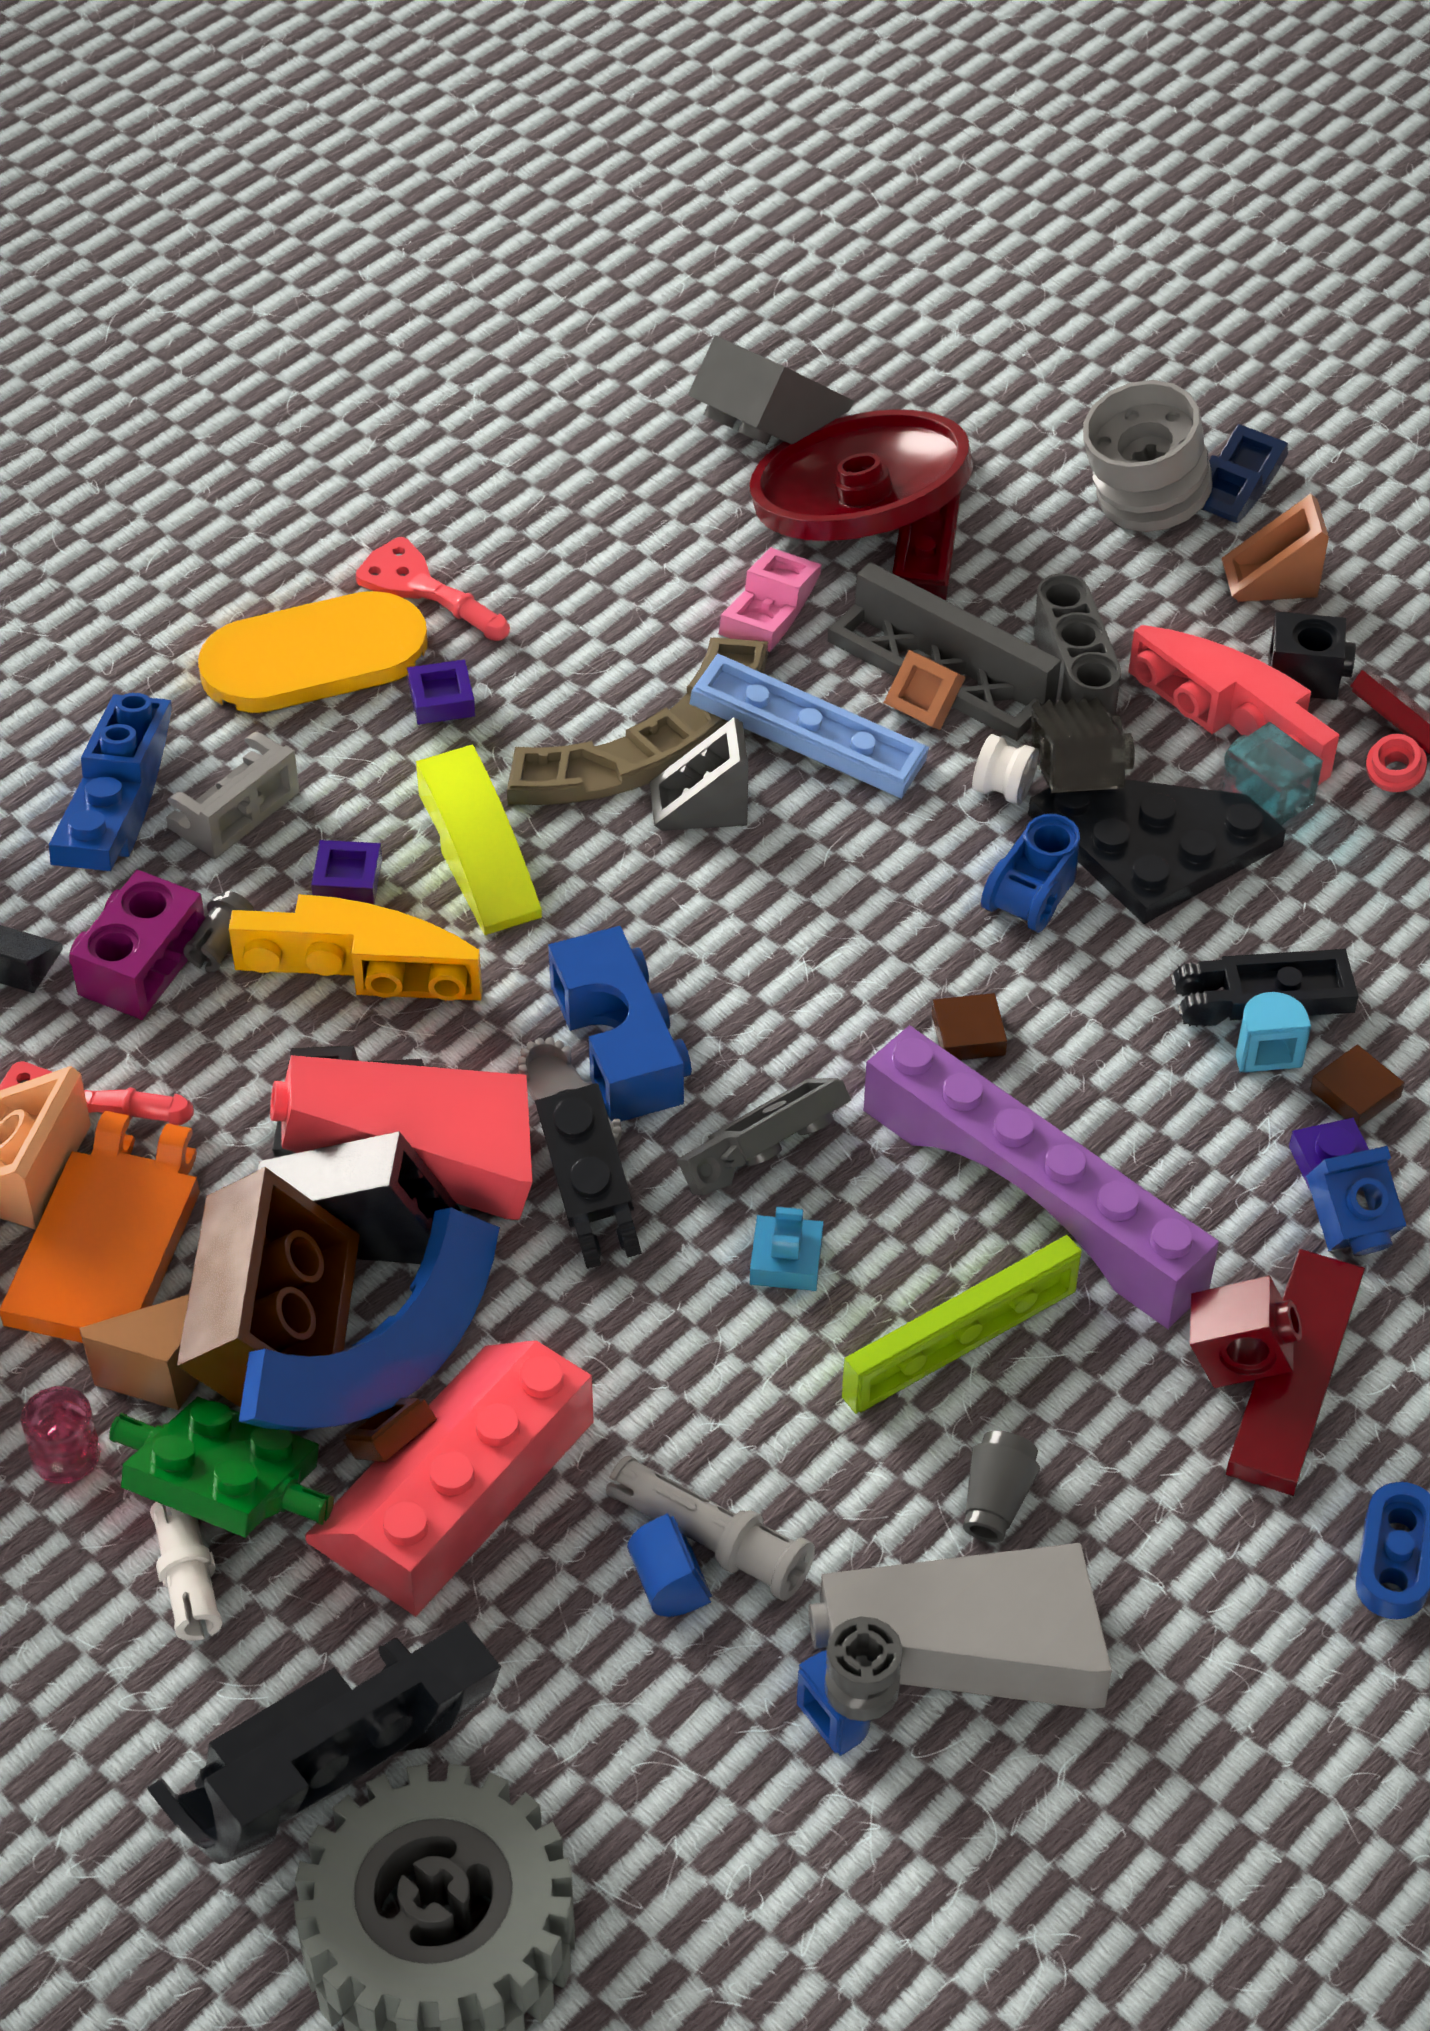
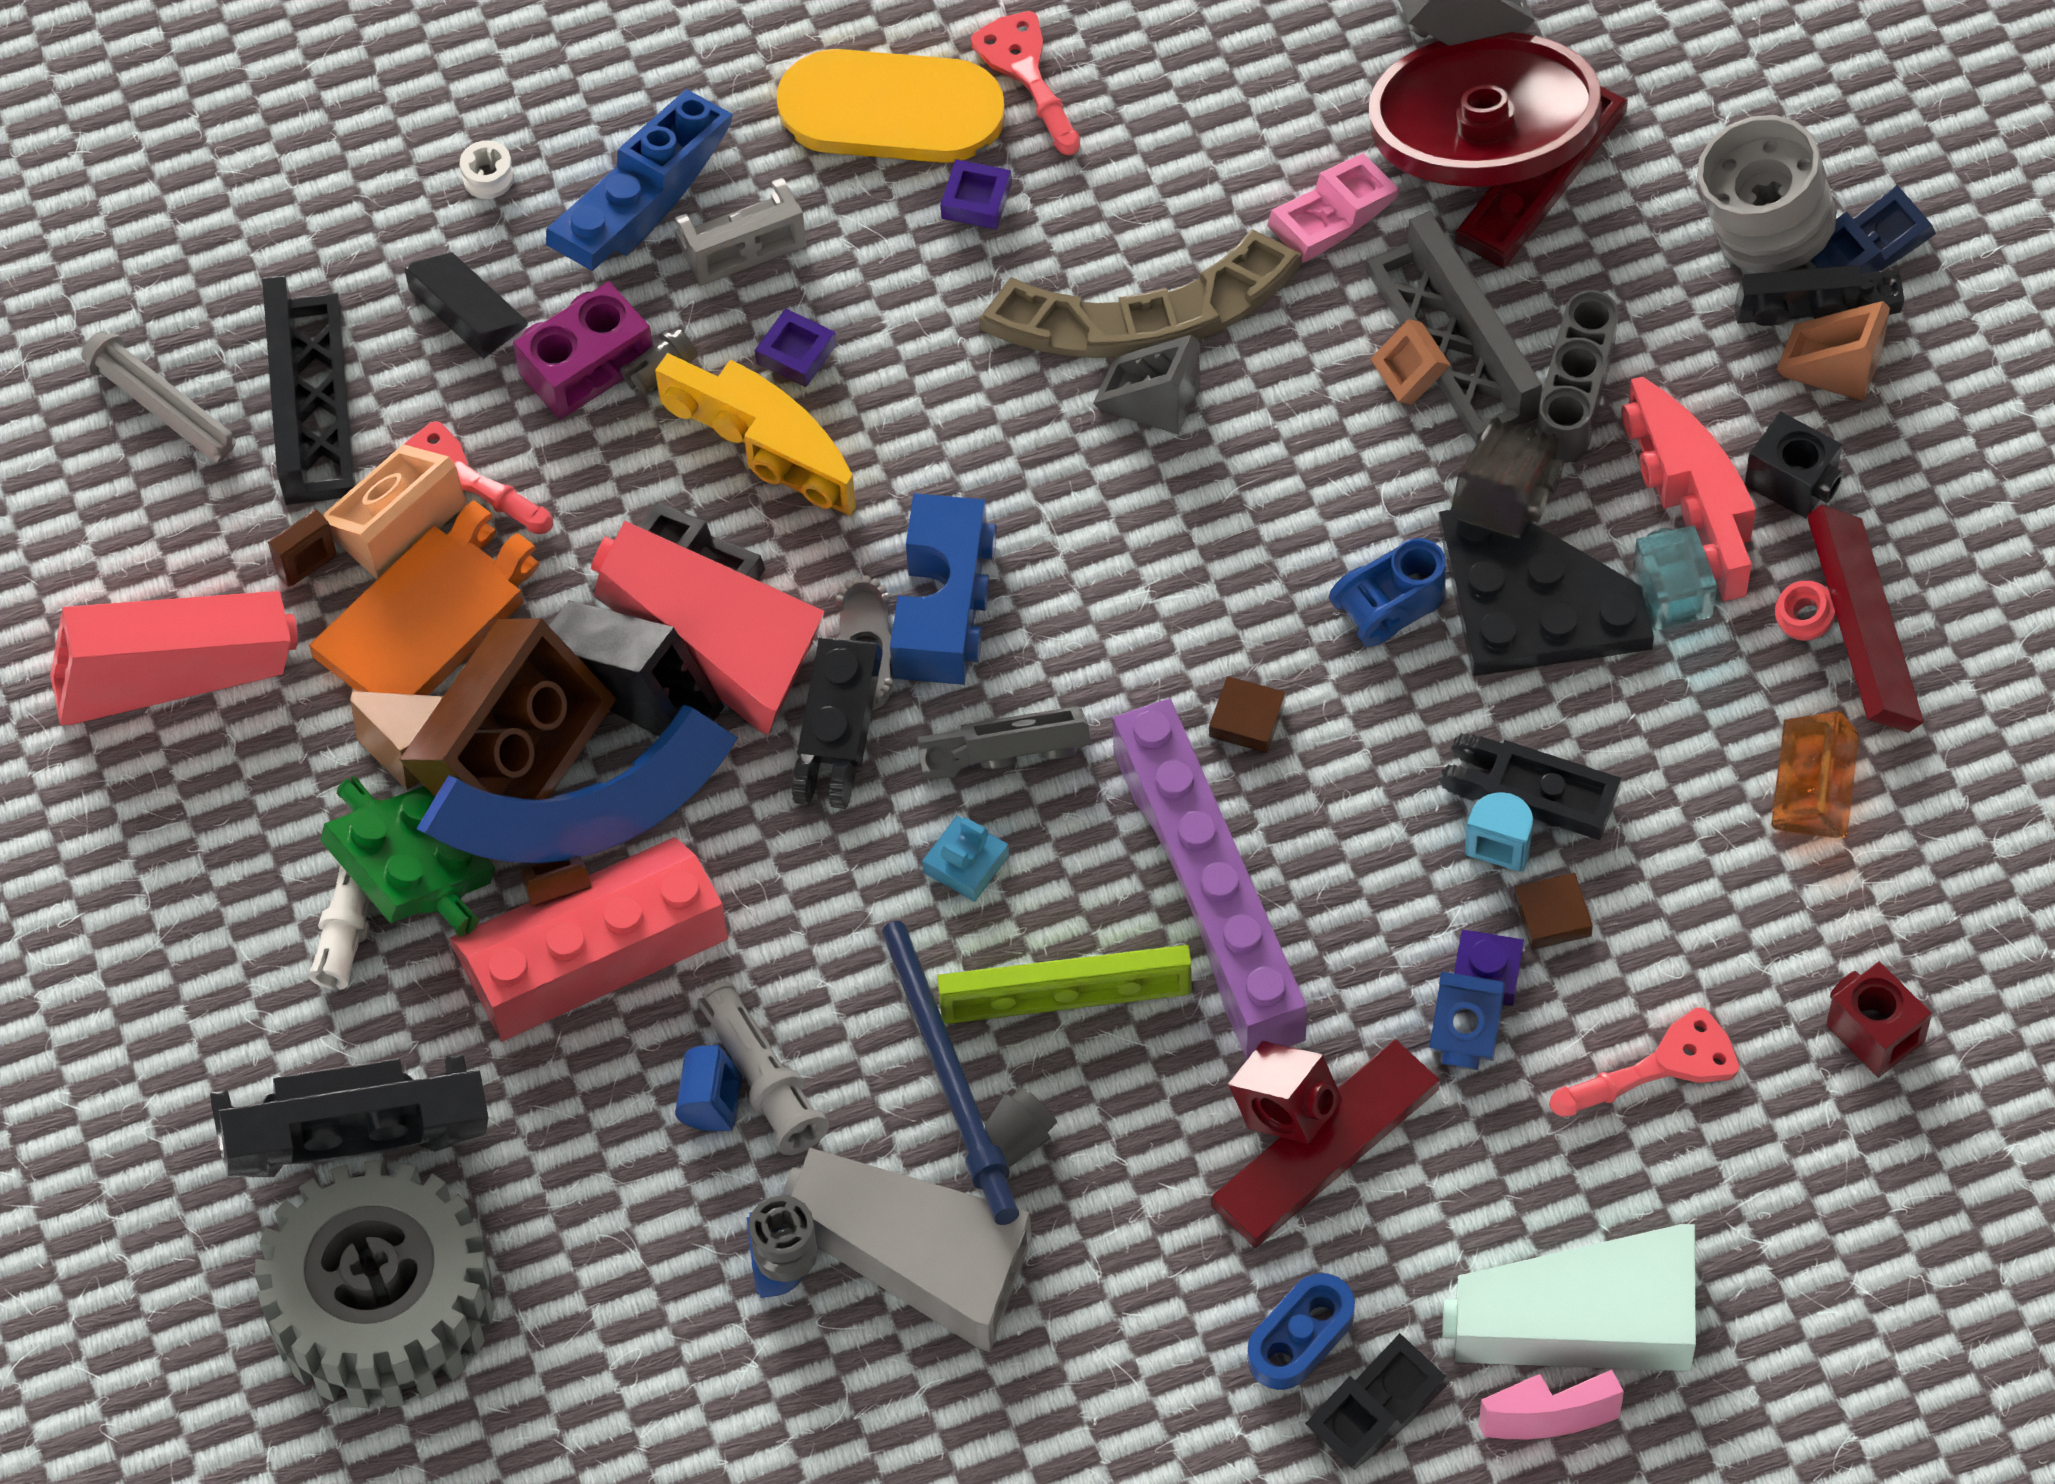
camera: 30 degrees right, 10 degrees up
(60, 1434) = (301, 774): clear pink wheel -> none
(477, 839) = (921, 361): neon yellow slope -> none
(809, 725) = (1284, 358): light blue tile -> none
(1005, 769) = (1430, 473): white wheel -> none
(1006, 1511) = (984, 1160): none -> dark blue bar
(1223, 525) = (1813, 293): none -> black hinge

